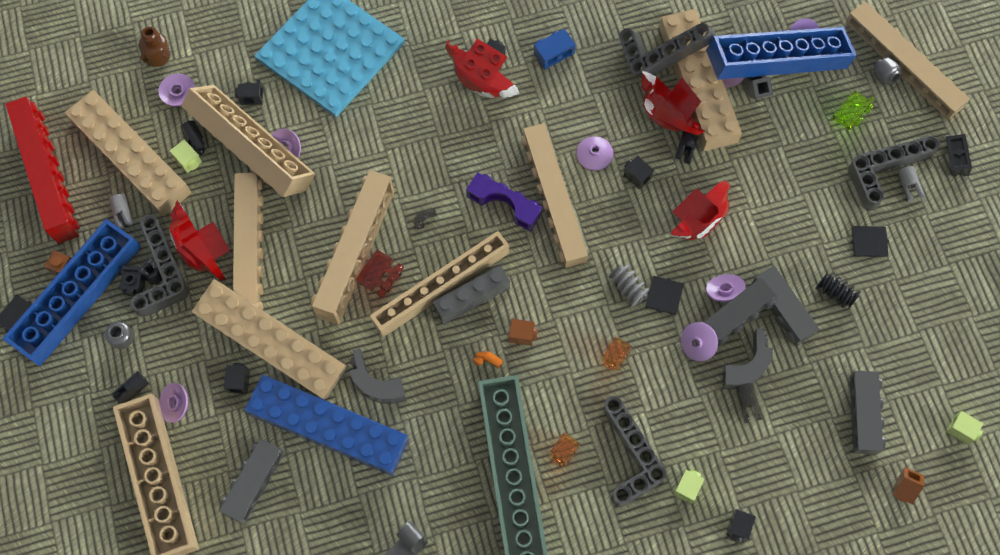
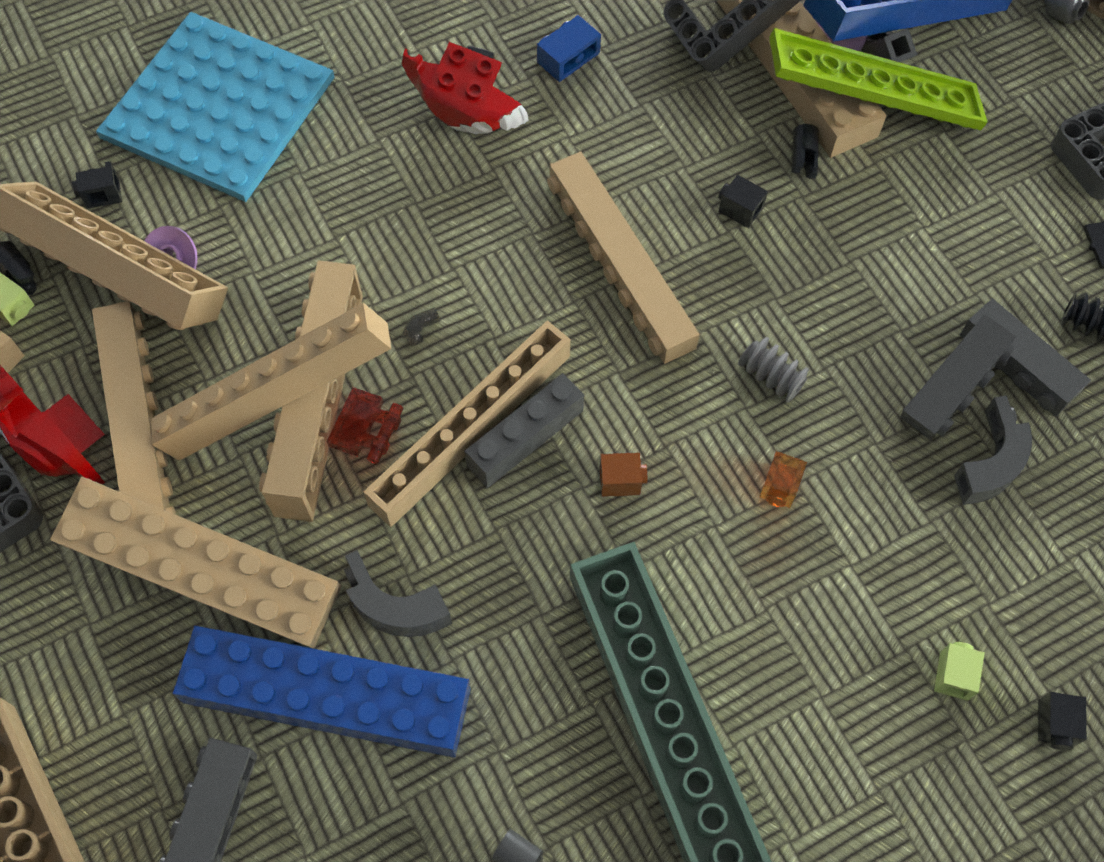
camera: 15 degrees left, 5 degrees down
(173, 402) = (43, 706): lavender dish -> none
(237, 378) = (150, 643): black brick -> none
(328, 242) = (271, 382): none -> tan brick
(481, 357) = (573, 524): orange arm -> none
(484, 189) = (511, 266): dark purple arch -> none
(564, 450) = (739, 653): clear orange brick -> none
(594, 160) = (666, 196): lavender dish -> none
(635, 452) = (855, 632): dark grey beam -> none
(664, 295) = (831, 377): black piece -> none
(670, 107) = (766, 100): red animal -> none
(701, 212) = (857, 247): red animal -> none
(705, 336) = (921, 424): lavender dish -> none
(725, 287) = (925, 346): lavender dish -> none
(741, 109) = (876, 79): none -> lime plate
(747, 399) = (1011, 511): clear smoke hinge -> none
(853, 109) = (1033, 64): clear neon green bracket -> none

